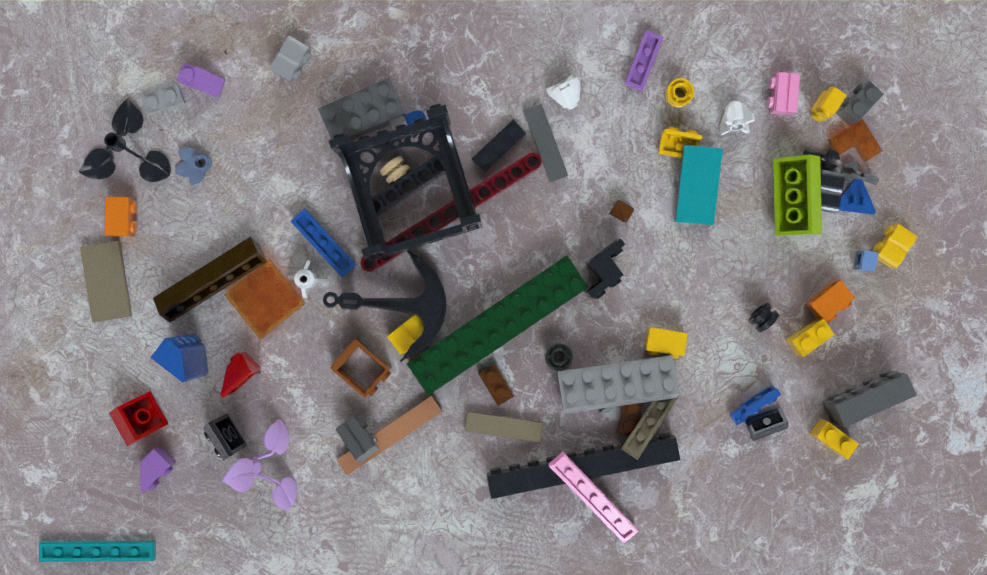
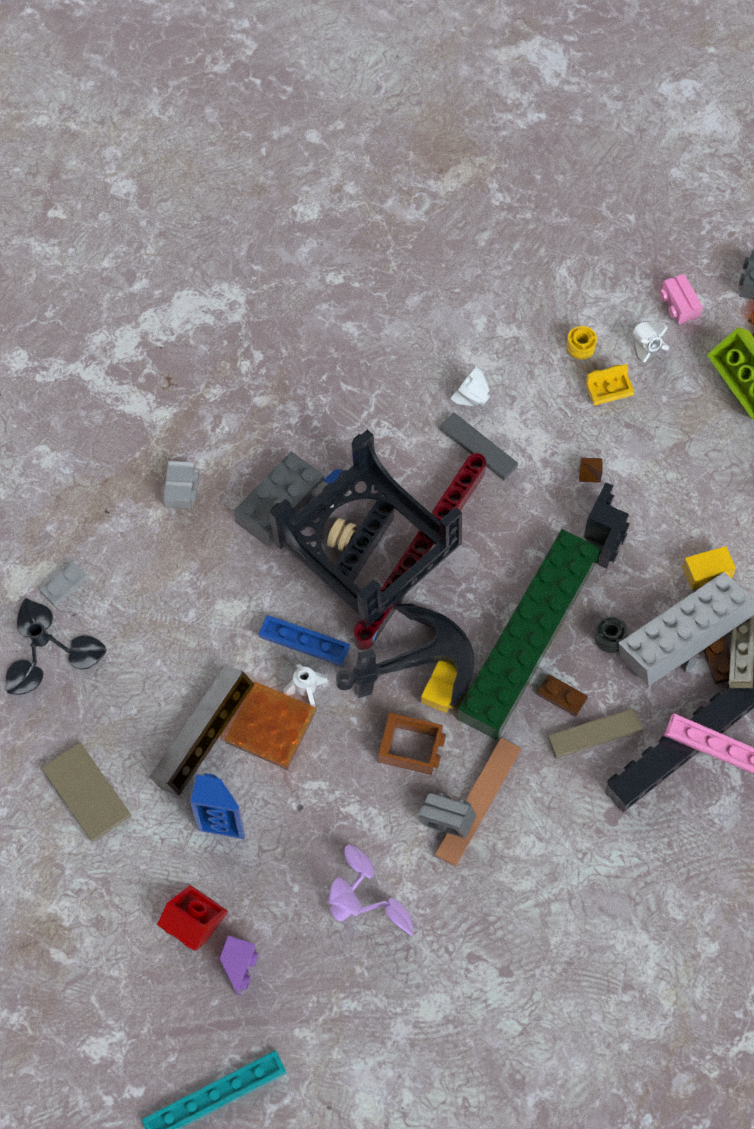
camera: 25 degrees left, 25 degrees down
(120, 216) = (72, 715): orange brick -> none
(191, 165) = (123, 633): sand blue plate -> none
(200, 80) = (95, 545): medium lavender slope -> none
(224, 436) = (299, 883): black slope -> none
(238, 373) = (282, 809): red slope -> none
(498, 146) = (433, 470): black plate -> none
(643, 61) = (530, 331): medium lavender plate -> none
(698, 184) = (650, 412): teal tile -> none
(827, 104) = (726, 286): yellow brick -> none

